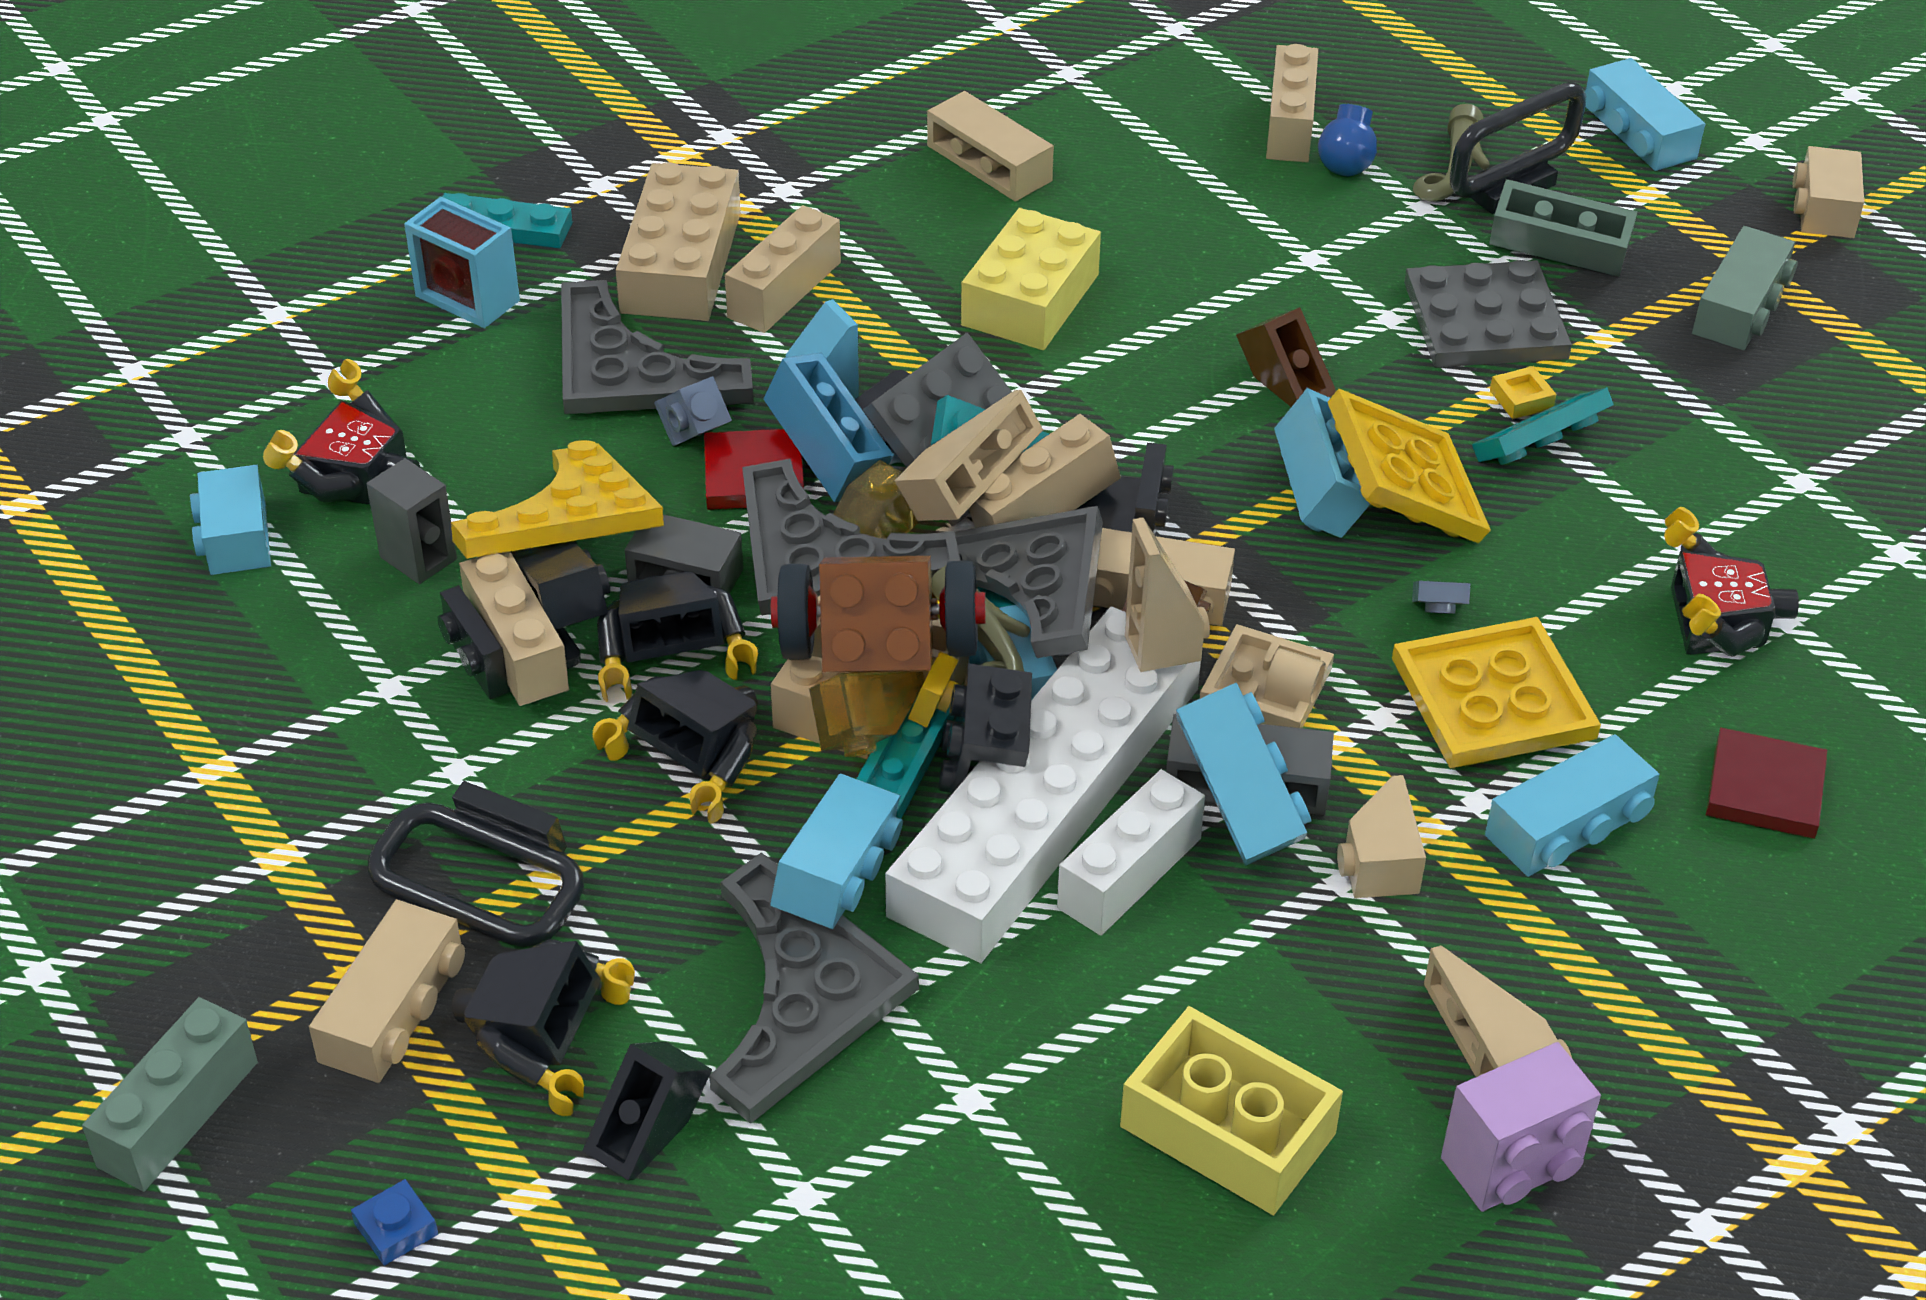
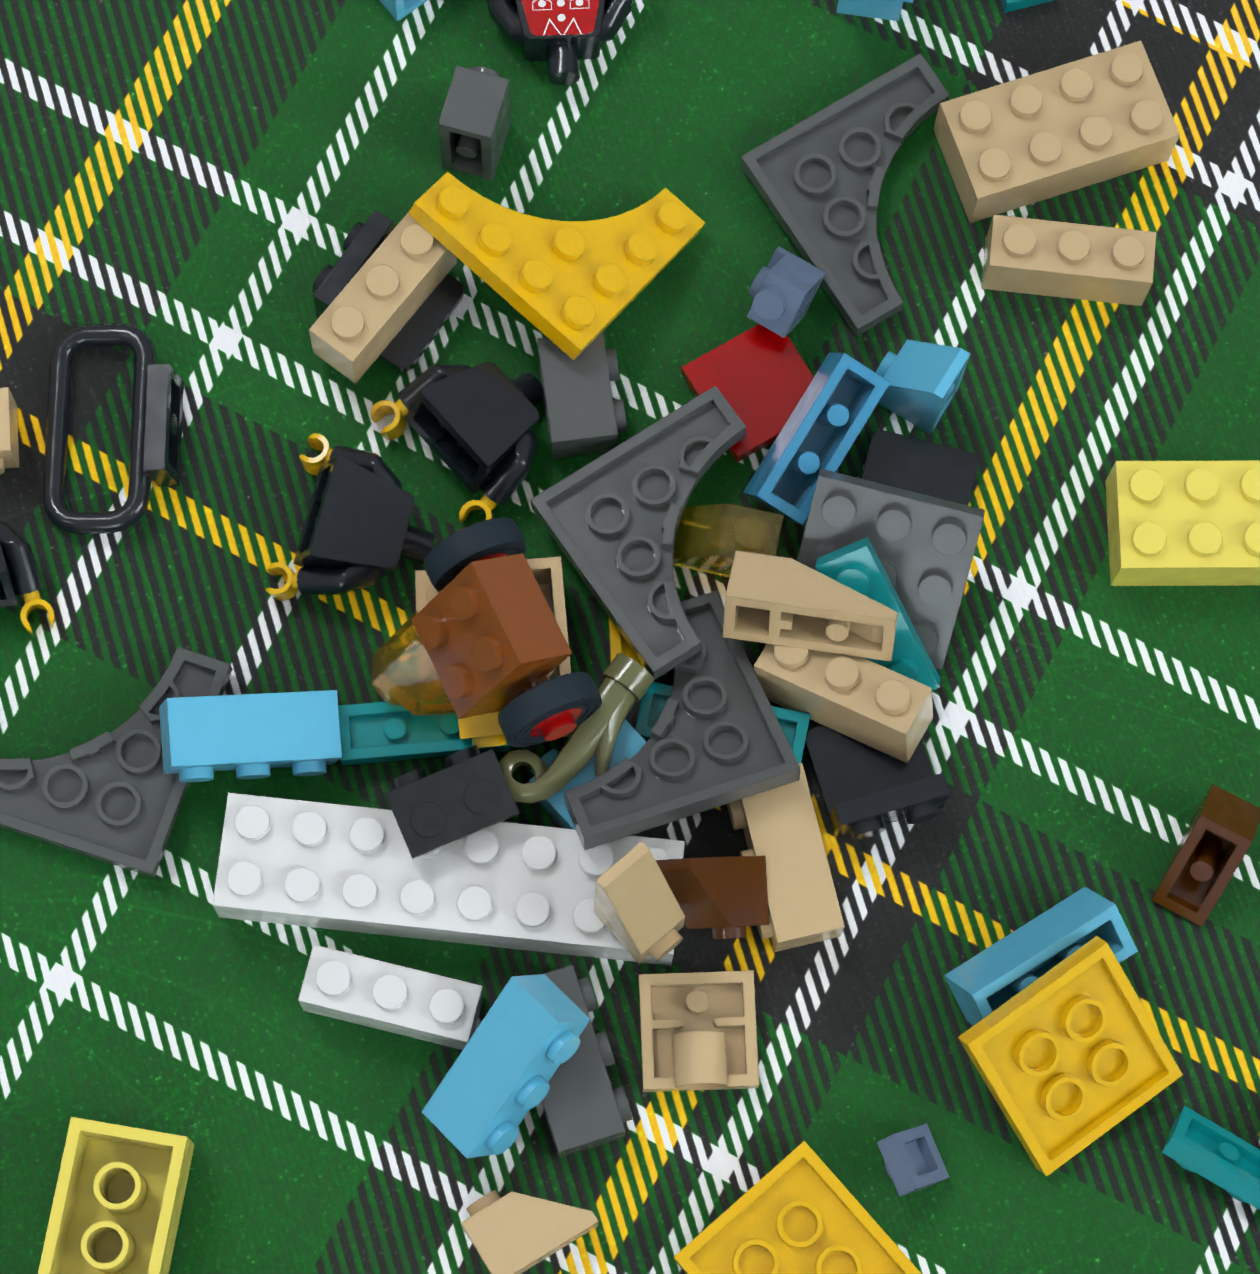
camera: 60 degrees right, 30 degrees up
(565, 582) = (445, 313): black brick -> none

